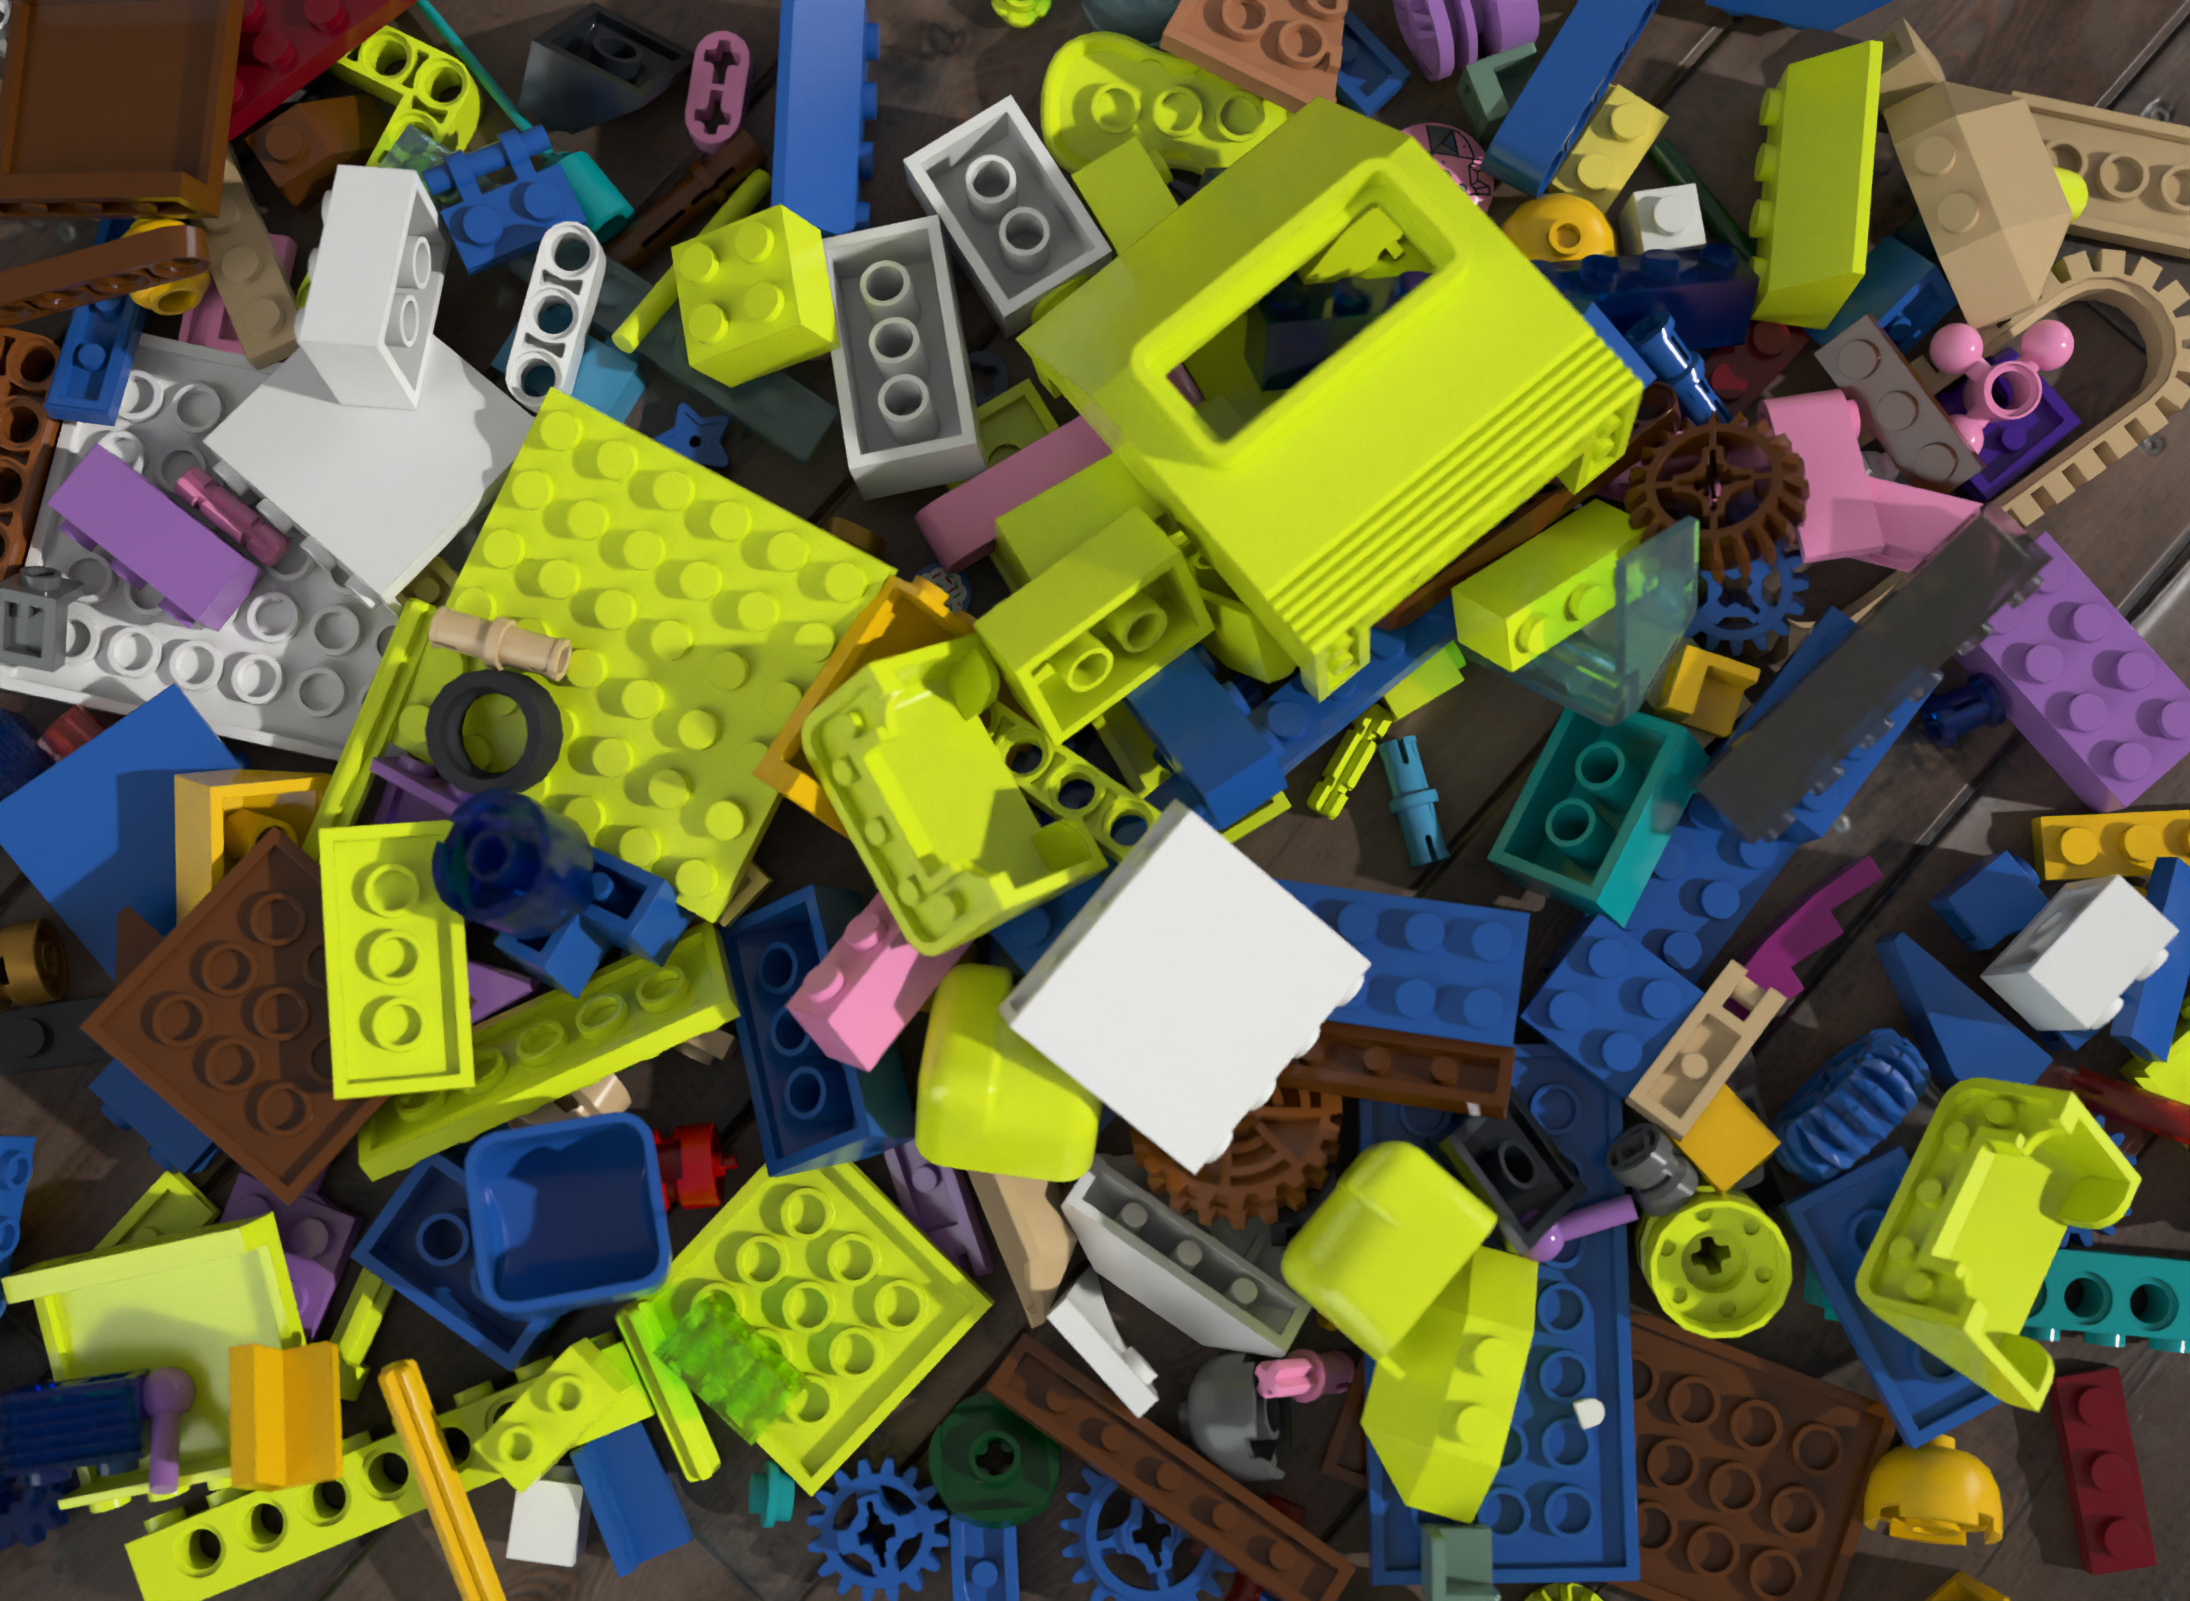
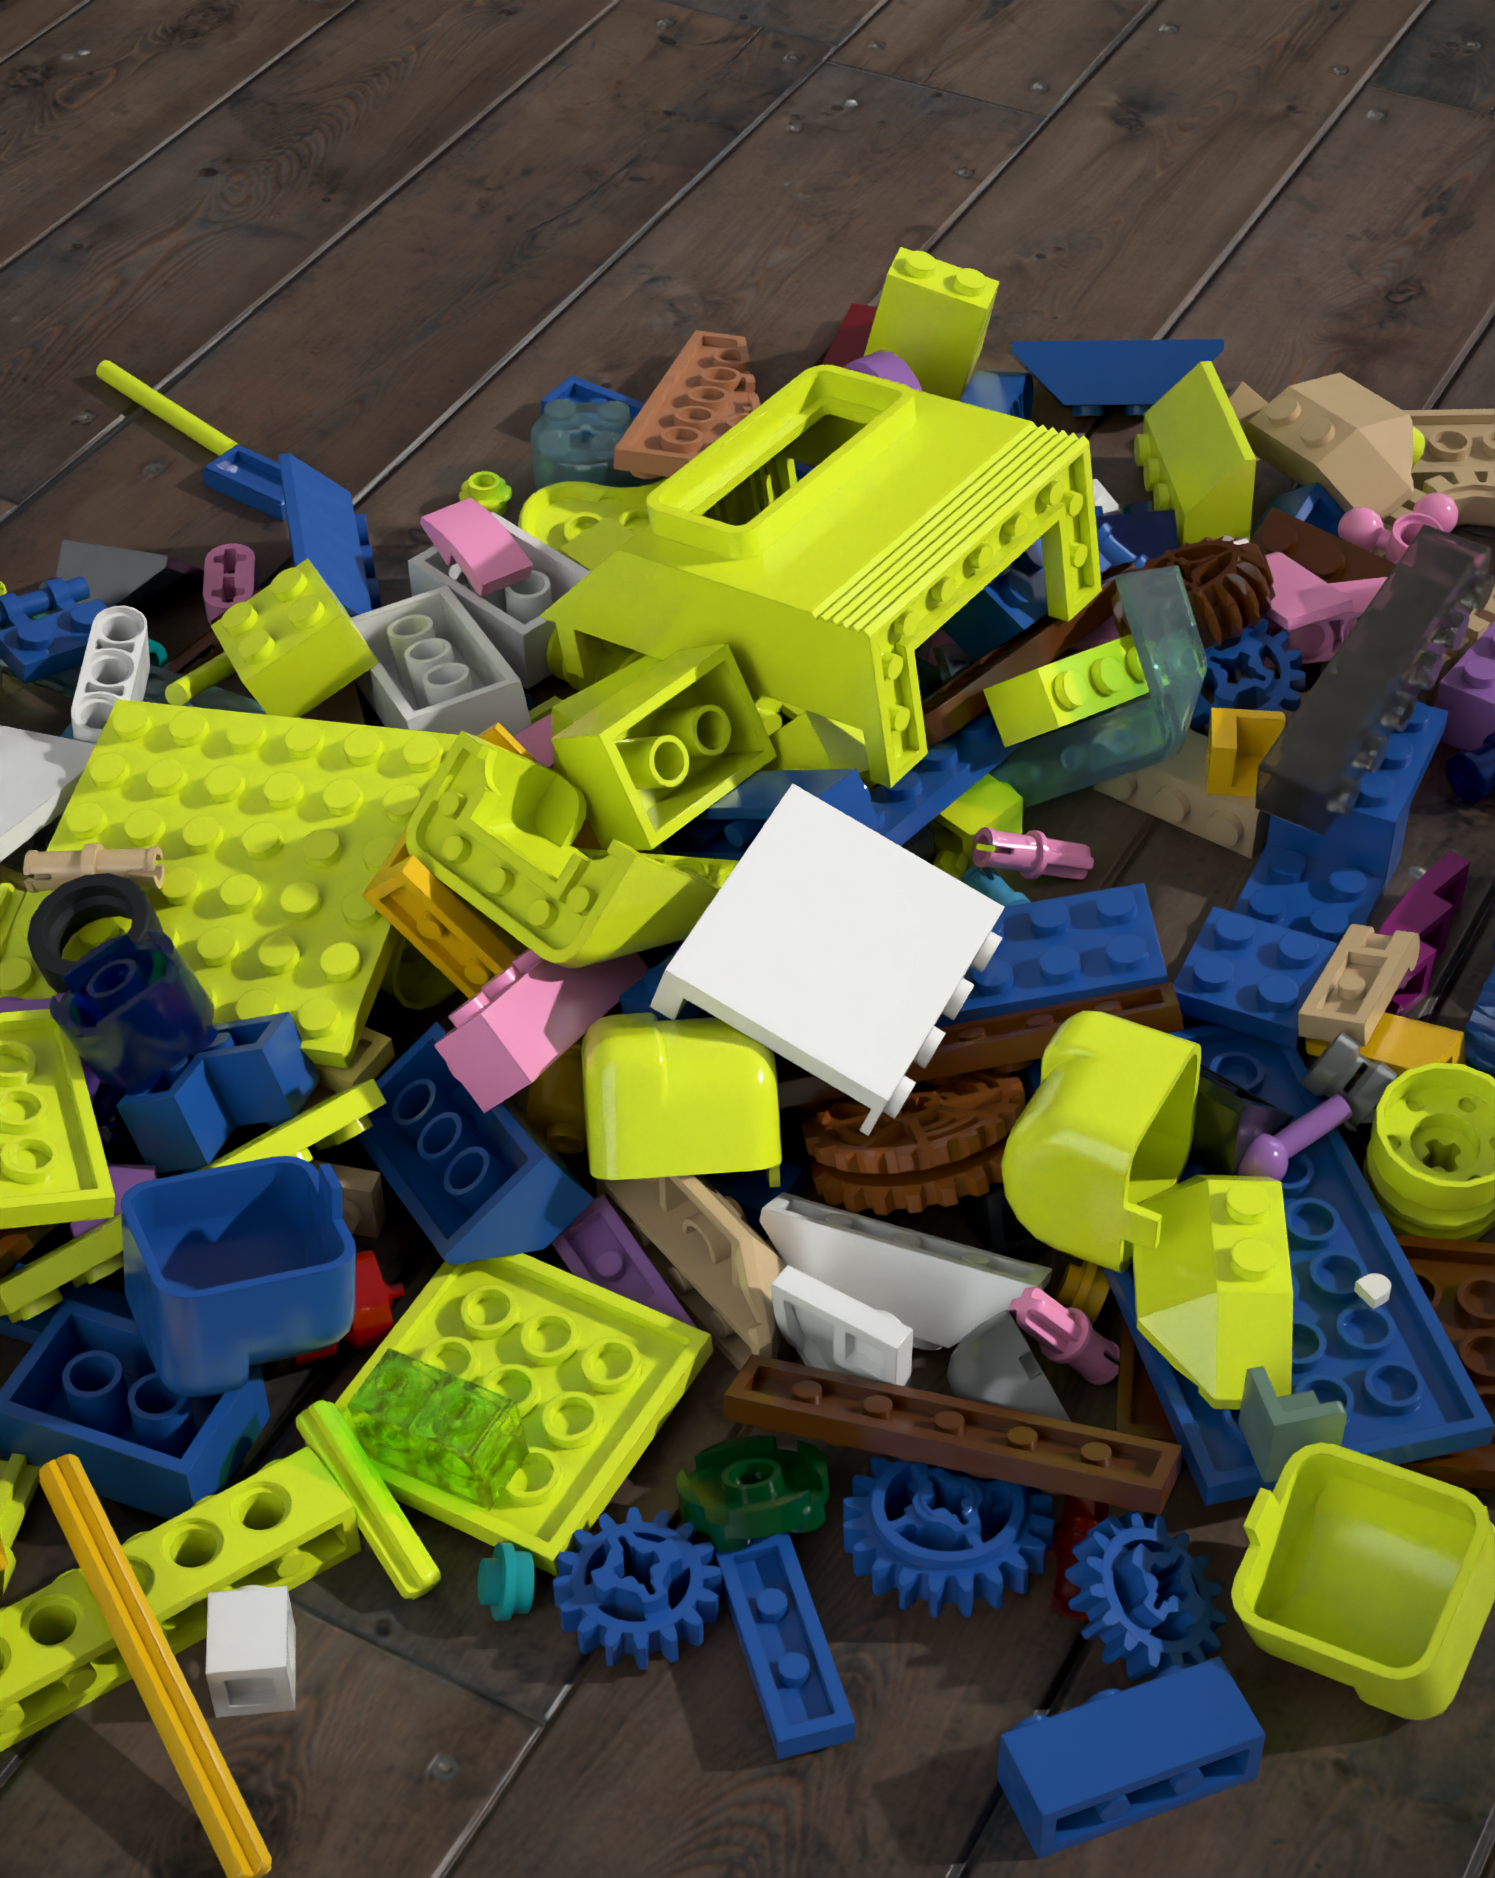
camera: 10 degrees left, 40 degrees down
(552, 1415) = (243, 1491): neon yellow brick -> none
(631, 1496) = (345, 1622): blue panel -> none
(977, 170) = (479, 544): none -> bright pink slope
(1454, 739) = (1032, 854): none -> bright pink axle
(1599, 811) = (1191, 845): teal brick -> none

